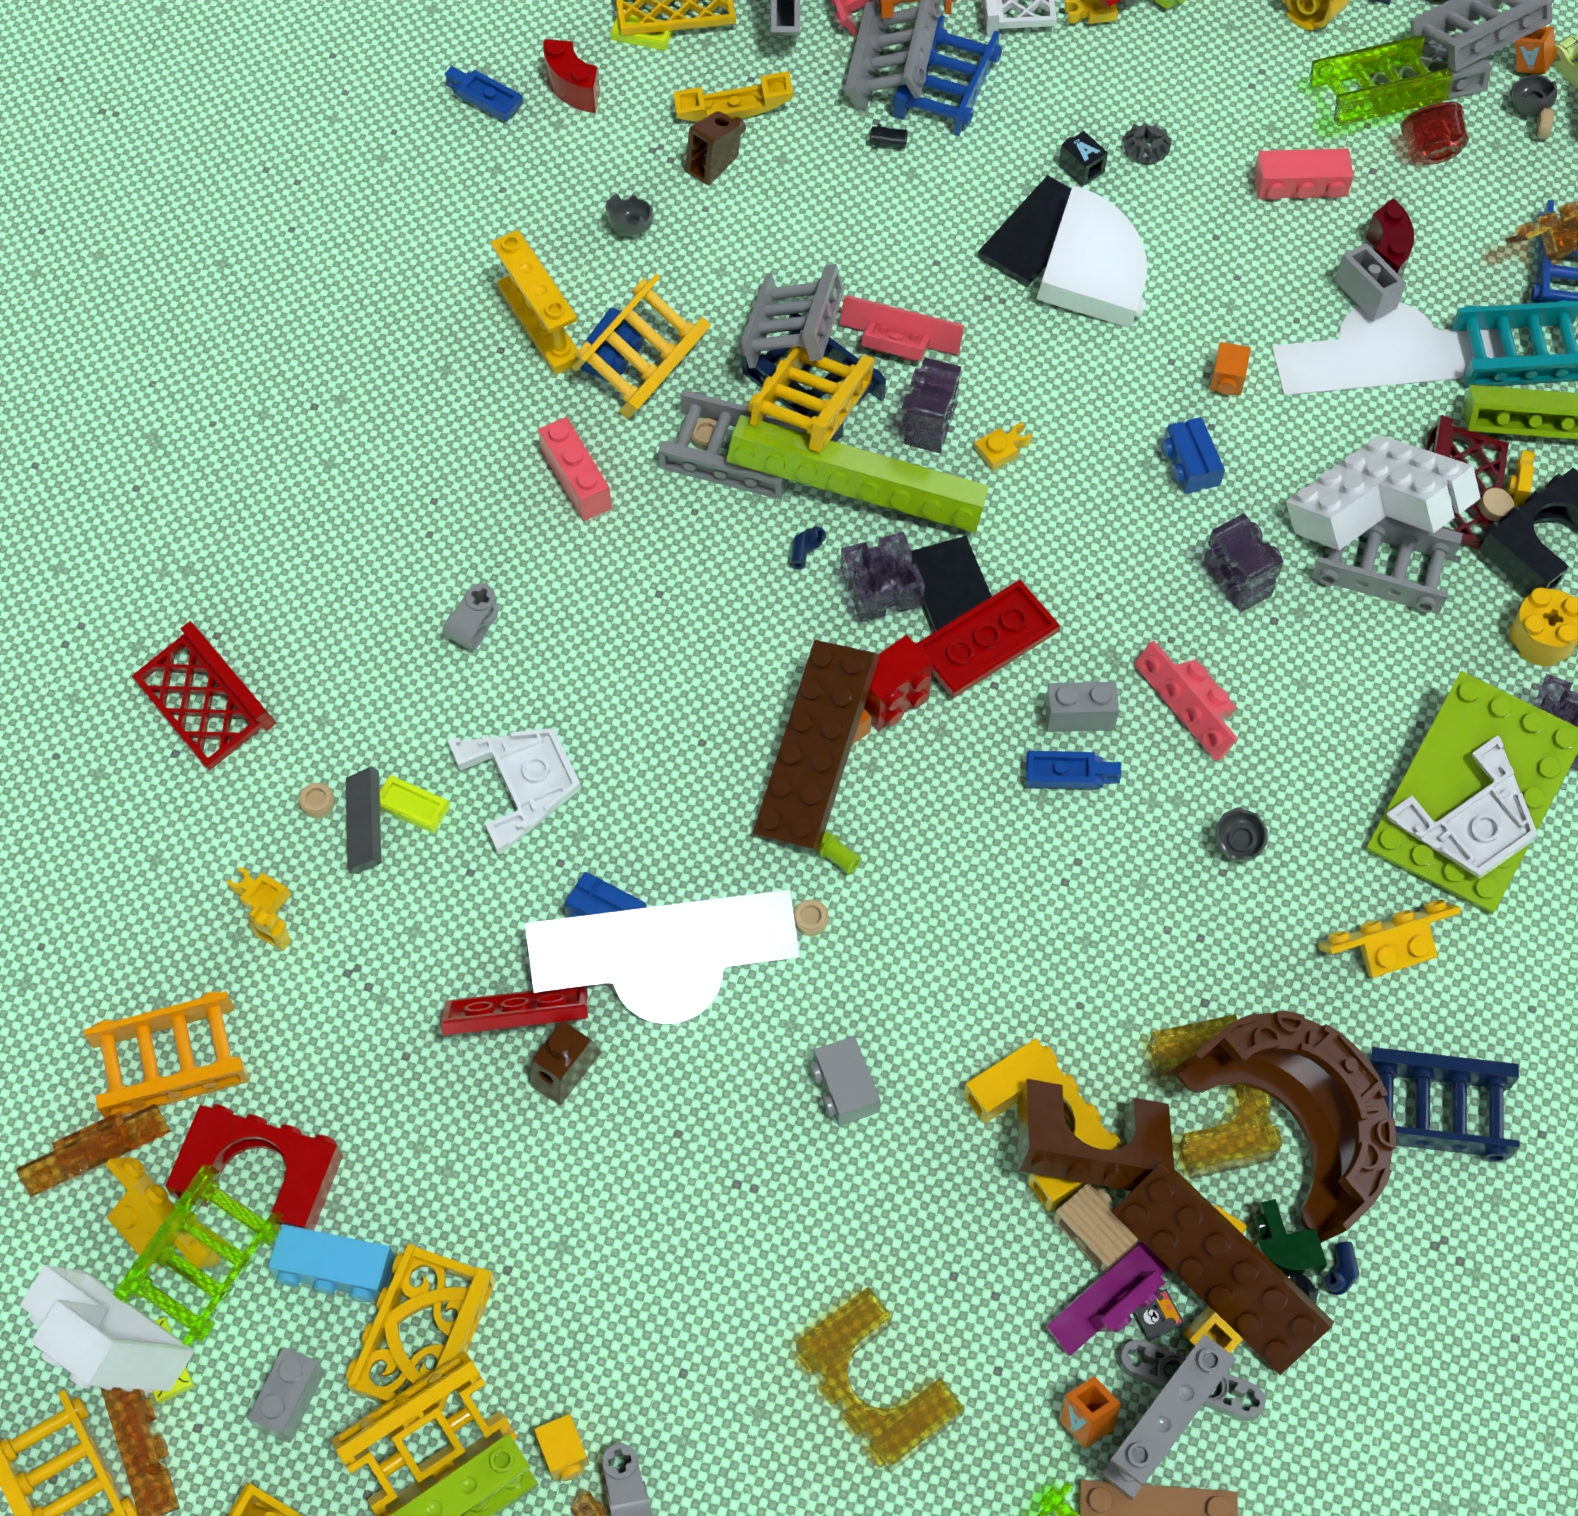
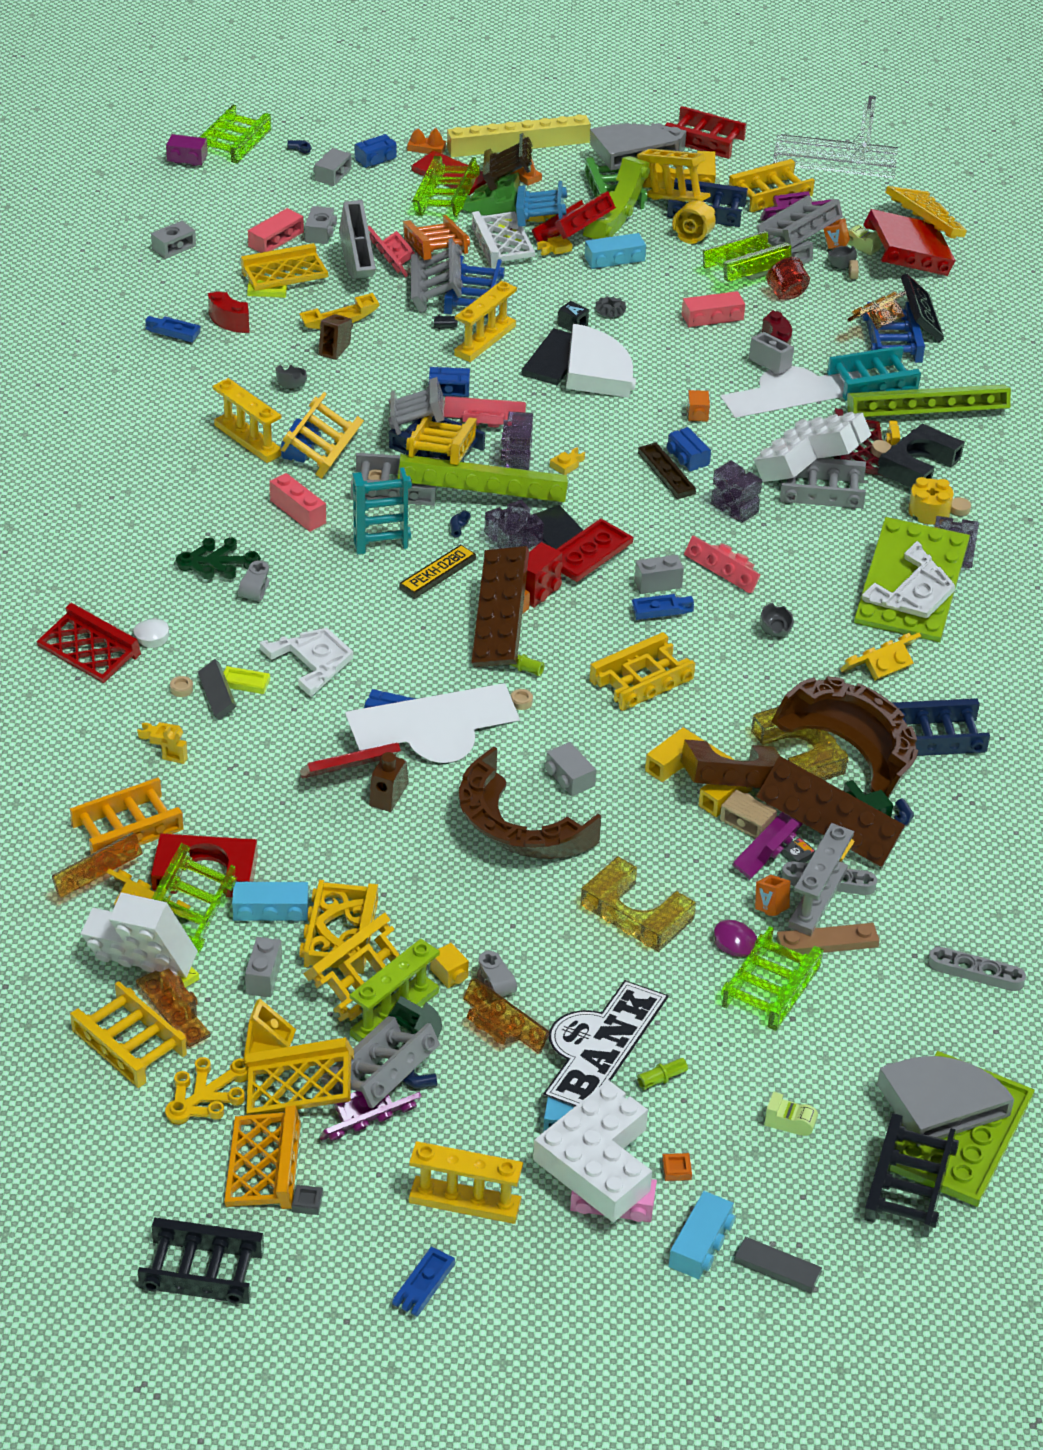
camera: 15 degrees left, 20 degrees down
(300, 685) = (151, 632): none -> white hat
(428, 558) = (192, 560): none -> dark green plant
(651, 538) = (362, 504): none -> teal fence
(694, 1186) = (479, 801): none -> reddish brown windscreen
(750, 636) = (437, 571): none -> tile
(863, 260) = (453, 381): none -> blue brick
(951, 168) = (494, 329): none -> yellow fence
(998, 875) = (636, 658): none -> yellow fence
(1014, 1477) = (734, 938): none -> magenta hat
(1150, 489) = (667, 470): none -> dark brown tile
(1181, 32) = (615, 250): none -> medium azure brick

